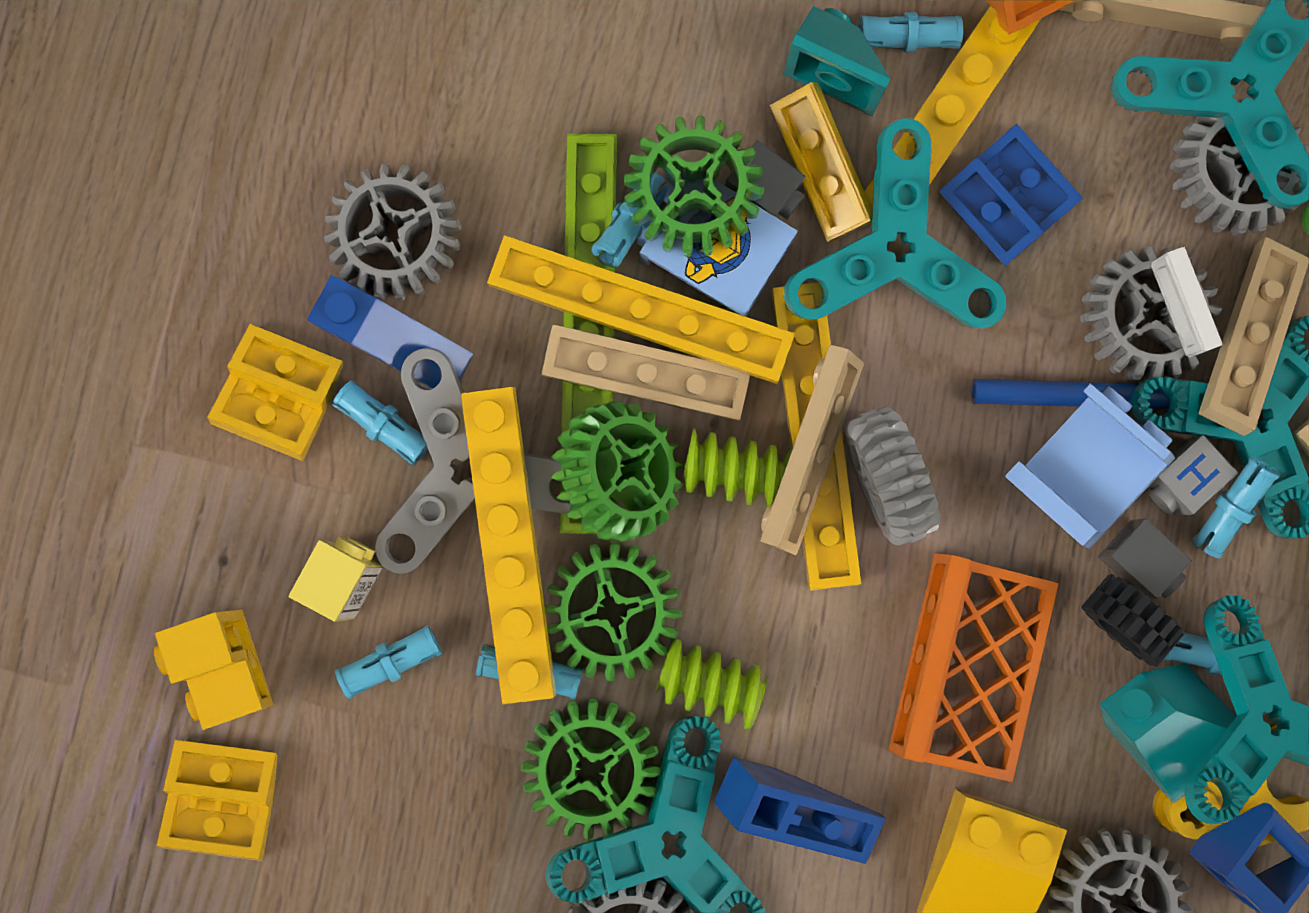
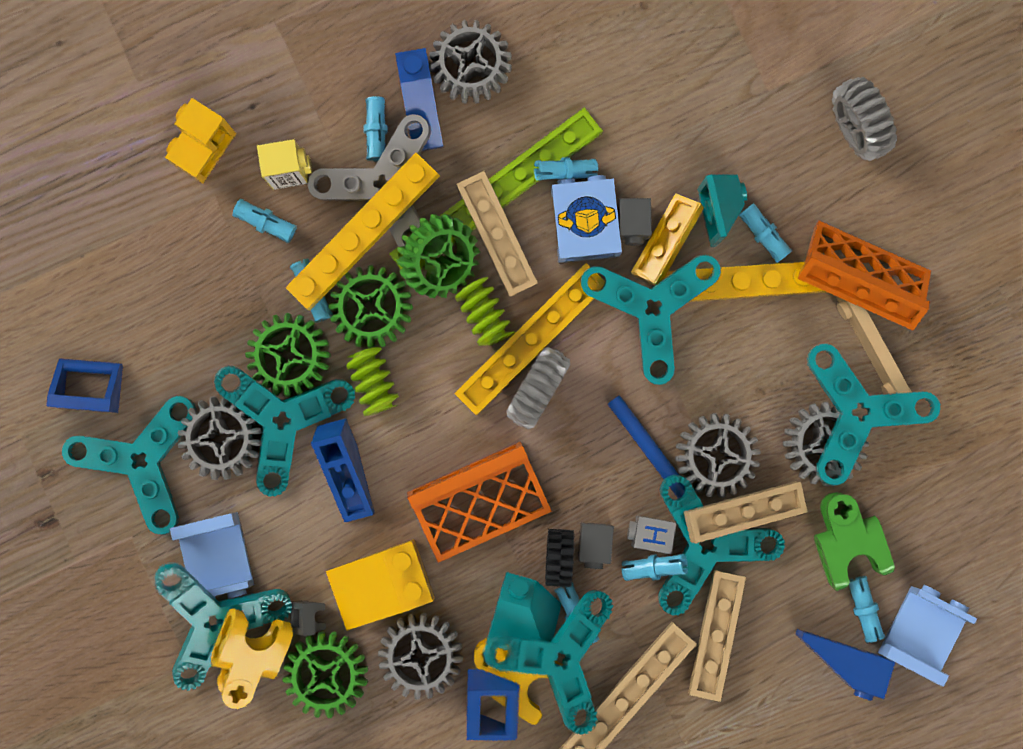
camera: 50 degrees right, 0 degrees up
(218, 800) = (137, 192): yellow slope -> none
(276, 392) = (351, 67): yellow slope -> none
(640, 309) = (525, 207): yellow plate -> none
(722, 152) = (616, 184): bright green gear -> none
(789, 515) = (520, 340): tan plate -> none
(1010, 194) = (724, 343): blue slope -> none
(1094, 466) = (618, 482): light blue panel -> none
(1186, 302) = (732, 463): white tile -> none

